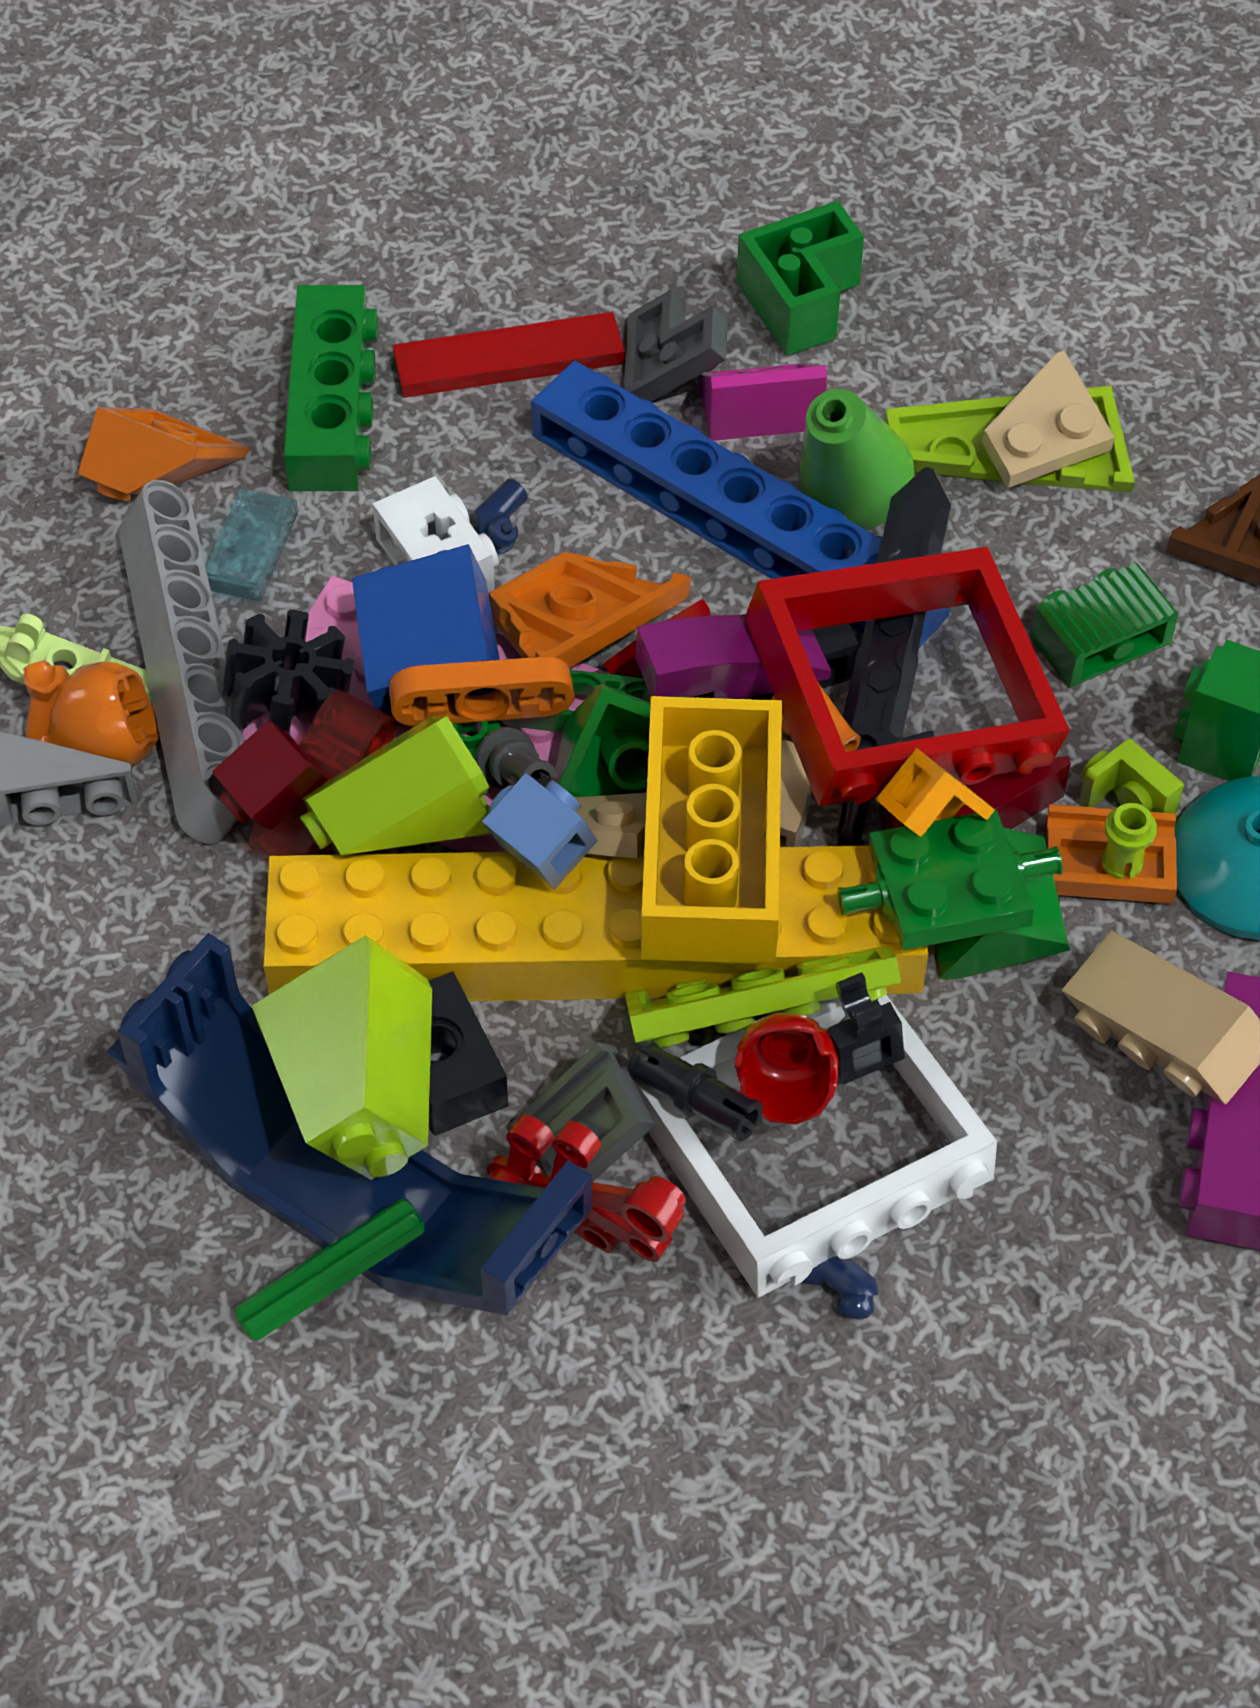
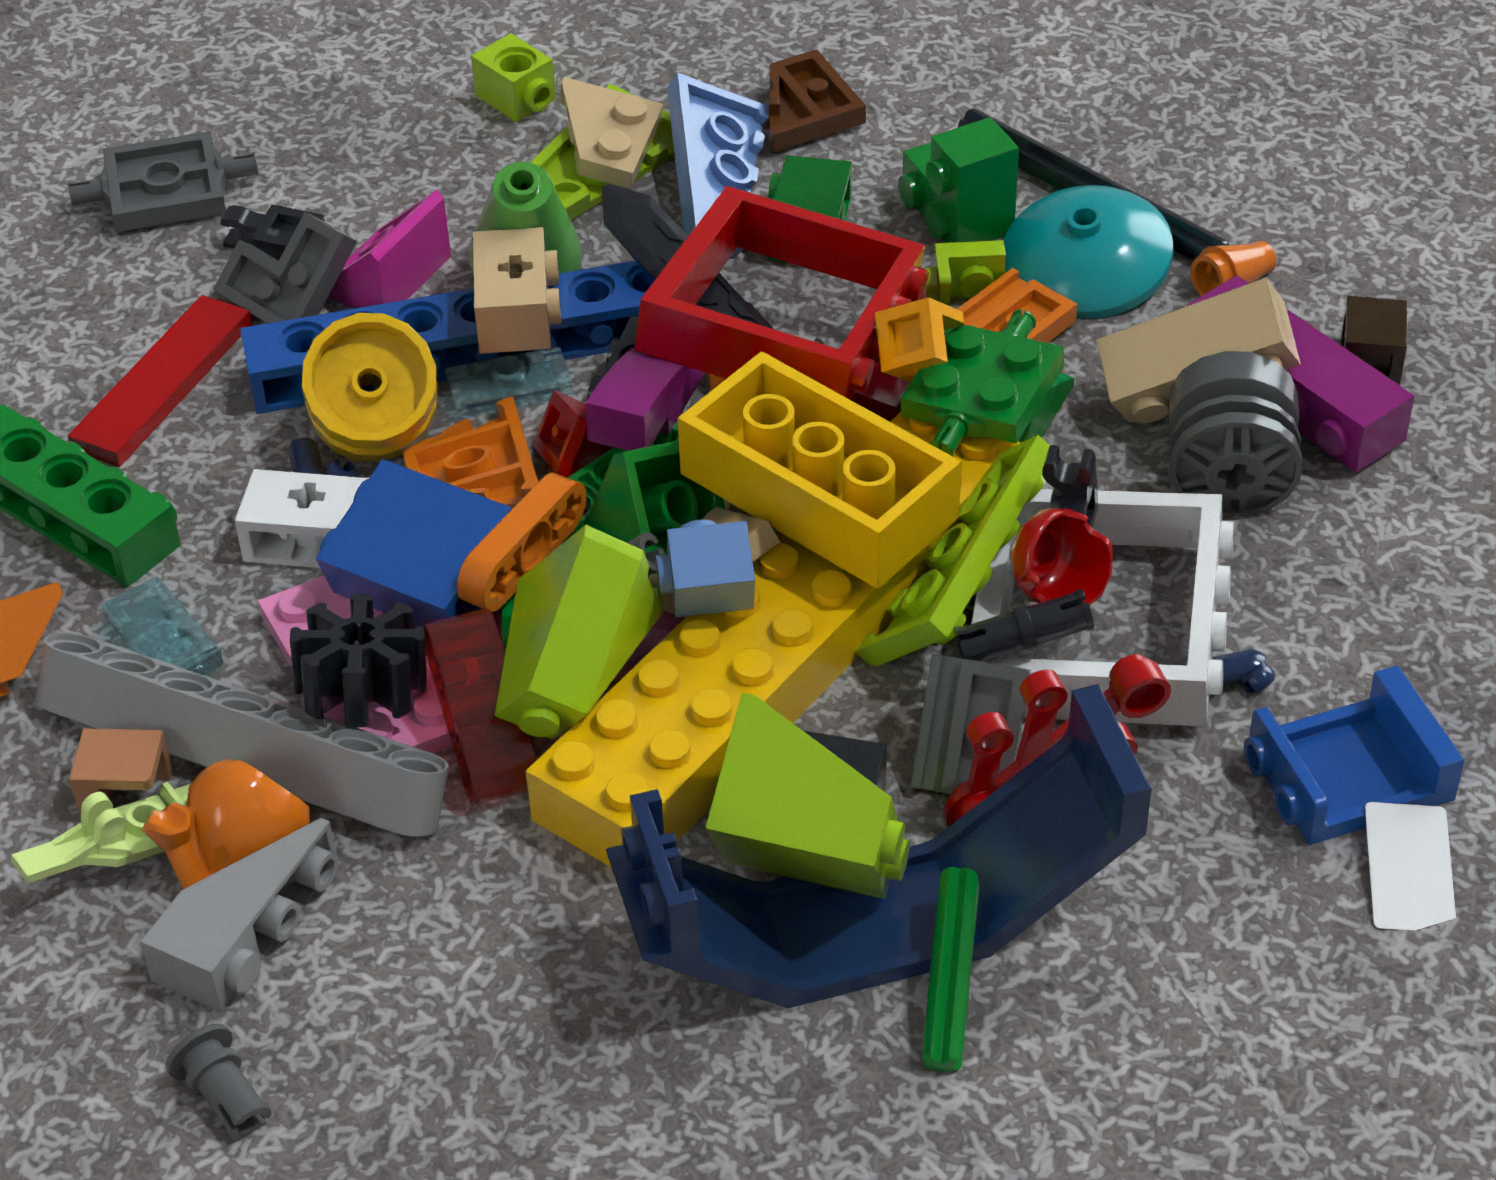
camera: 50 degrees left, 10 degrees down
(91, 608) = (118, 761): none -> nougat panel
(267, 777) = (461, 715): dark red brick -> none
(578, 483) = (375, 353): none -> yellow wheel
(709, 195) = (163, 181): none -> dark grey plate
(715, 566) = (524, 376): none -> clear light blue plate
(733, 300) = (265, 231): none -> black plate
(733, 1548) = (1409, 865): none -> white sticker
(759, 493) = (513, 291): none -> tan brick
(797, 271) = (310, 169): green brick -> none
(807, 1433) = (1354, 756): none -> blue panel
(1057, 318) = (513, 77): none -> lime brick
(1101, 516) = (713, 144): none -> medium blue wing
(1102, 1106) = (1235, 431): none -> dark grey wheel
(1129, 833) = (1028, 279): lime pin -> none

